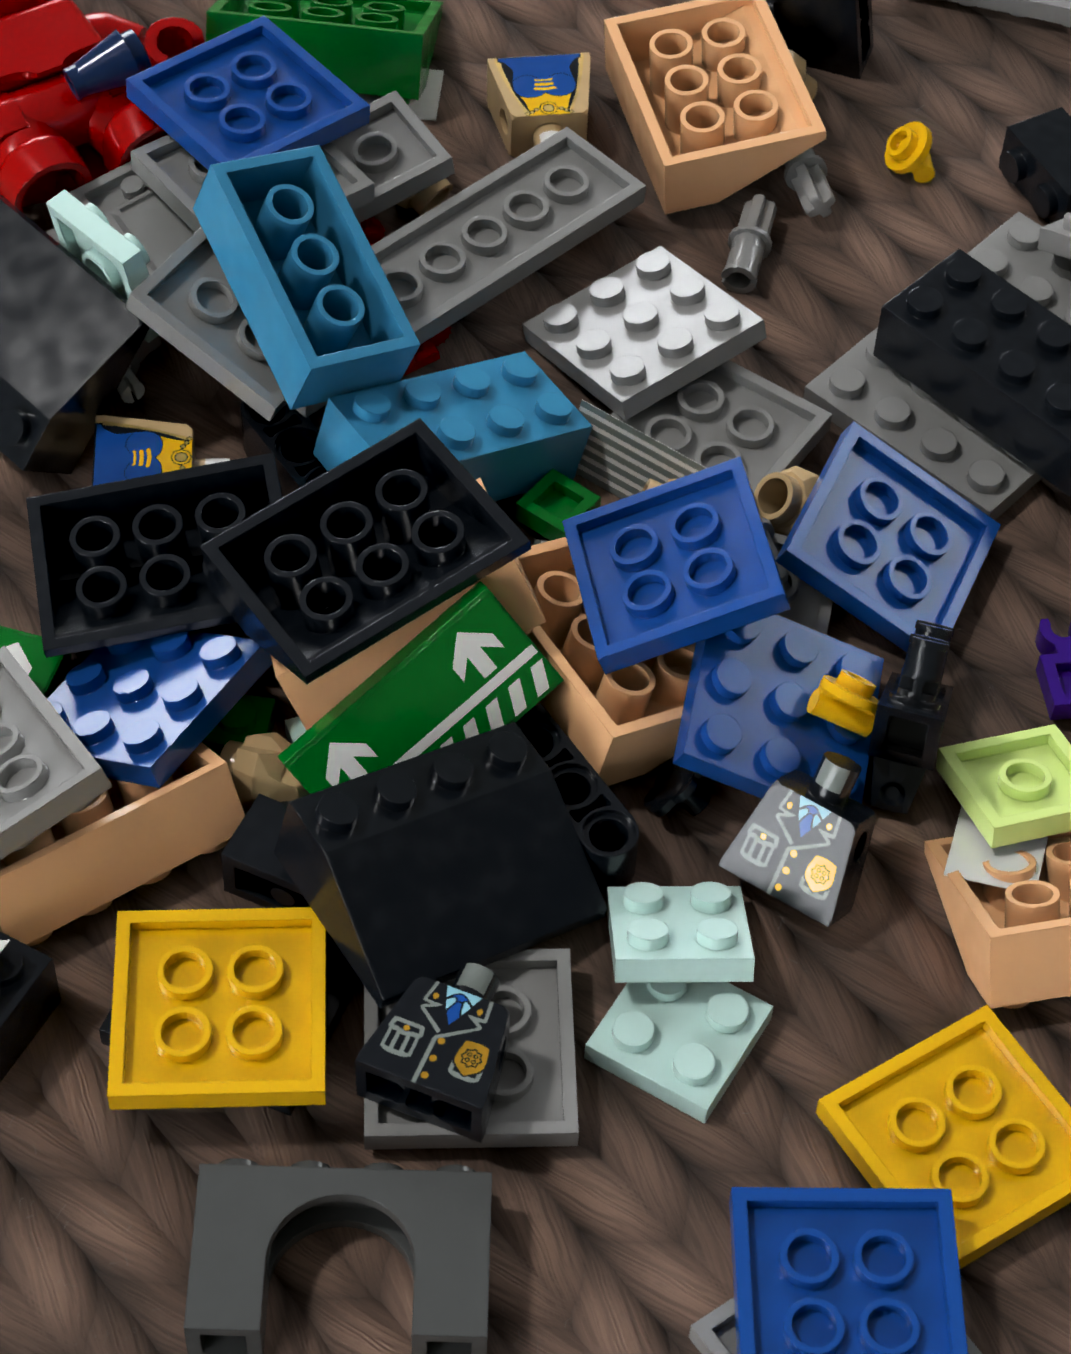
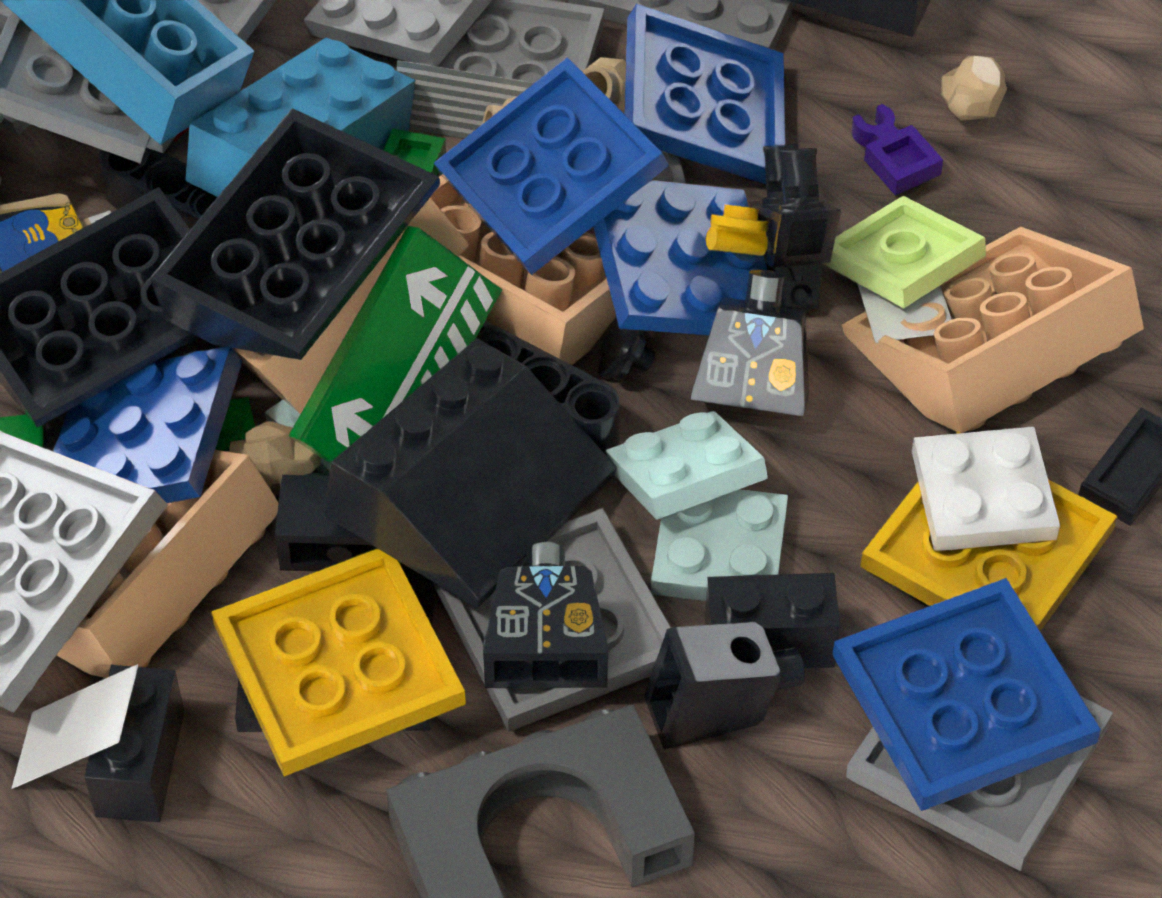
camera: 20 degrees left, 0 degrees up
(596, 1180) = (716, 680): none -> black torso
(684, 1136) = (791, 608): none -> black brick
(983, 1080) = (985, 489): none -> white plate

